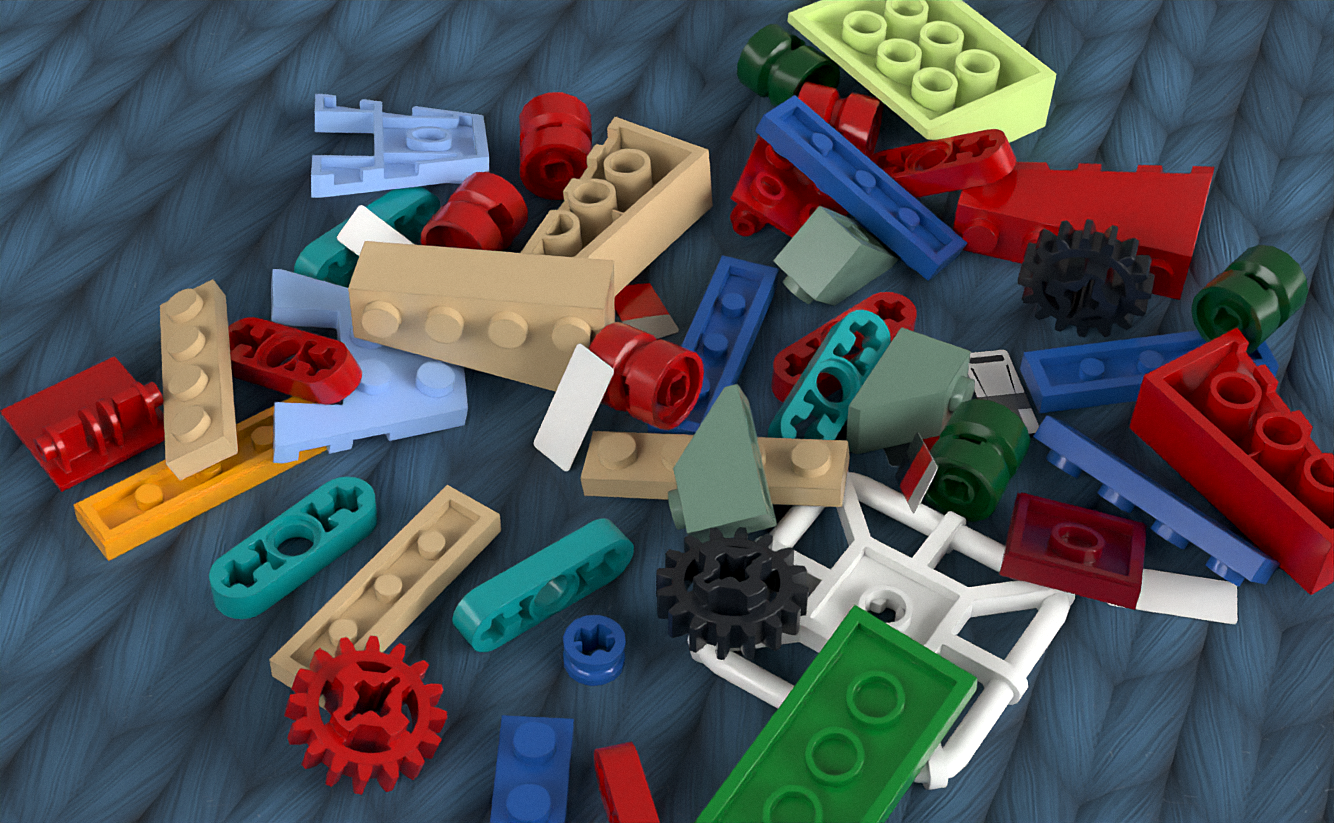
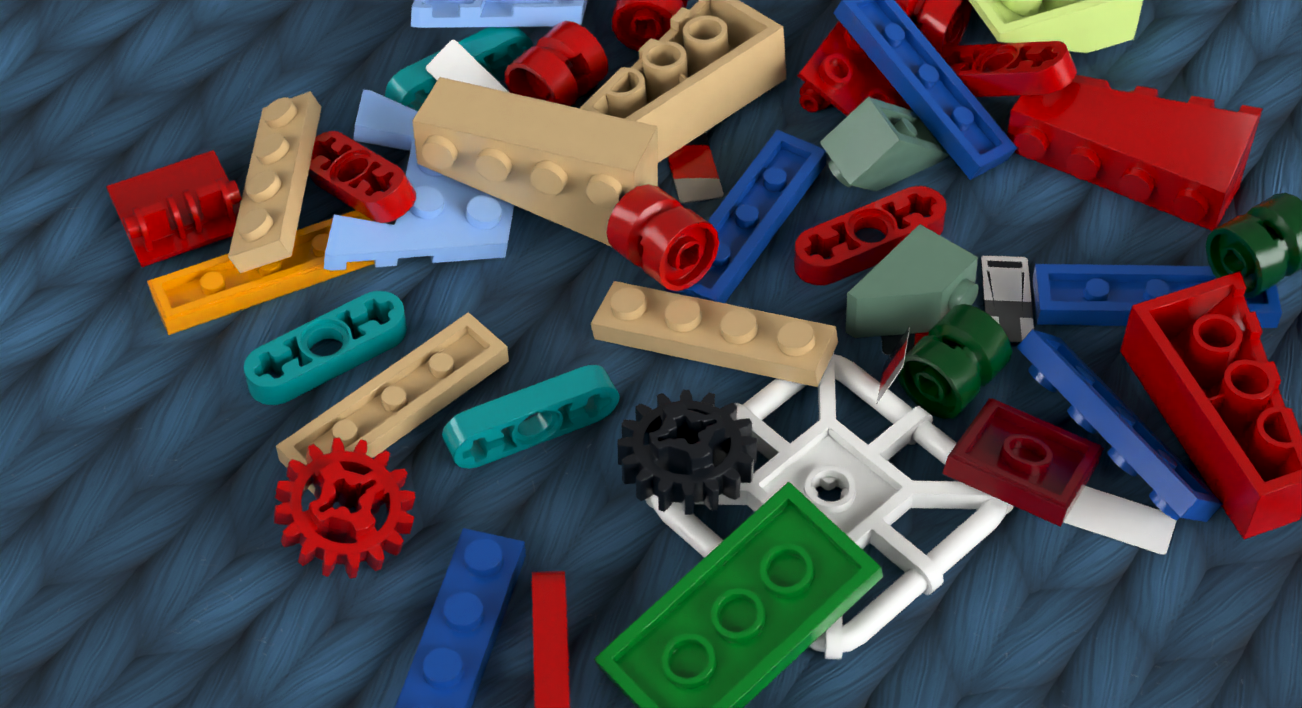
camera: 15 degrees right, 5 degrees up
(573, 407) = (596, 257): white sticker -> none
(601, 665) = (561, 498): blue bush -> none
(722, 474) = (709, 339): sand green slope -> none
(852, 374) = (855, 232): teal beam -> none
(1086, 278) = (1112, 201): black gear -> none

